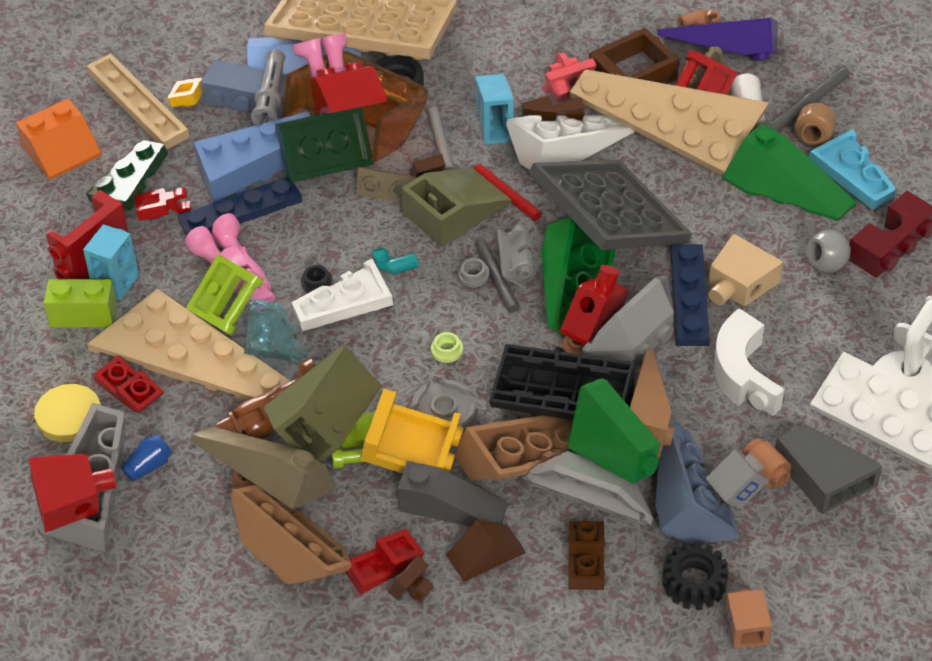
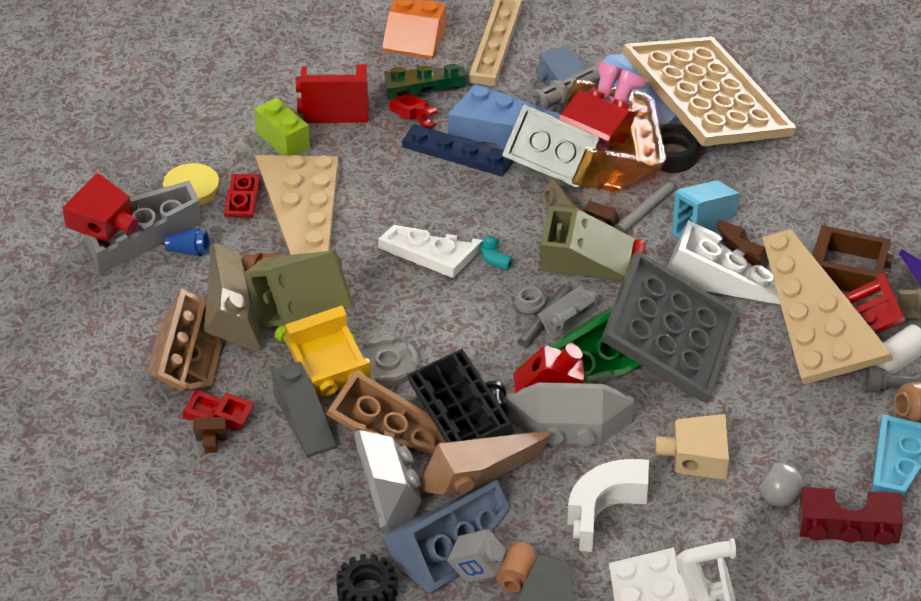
camera: 50 degrees right, 5 degrees down
(112, 257) = (327, 116): medium azure brick -> none
(185, 93) = (528, 57): yellow plate -> none
(217, 290) = (361, 187): lime plate -> none
(225, 234) = (400, 176): bright pink piece -> none
(271, 333) = (357, 232): clear light blue wing -> none
(315, 277) = (434, 224): black plate -> none
(443, 341) = (443, 328): yellowish green plate -> none
(484, 548) = (281, 455): reddish brown slope -> none
(564, 74) = (796, 223): coral hips -> none
(586, 555) = (335, 512): reddish brown slope -> none
(612, 433) = (419, 443): green slope -> none
(689, 295) = (640, 435): dark blue plate -> none
(780, 170) = (837, 414): green wedge -> none

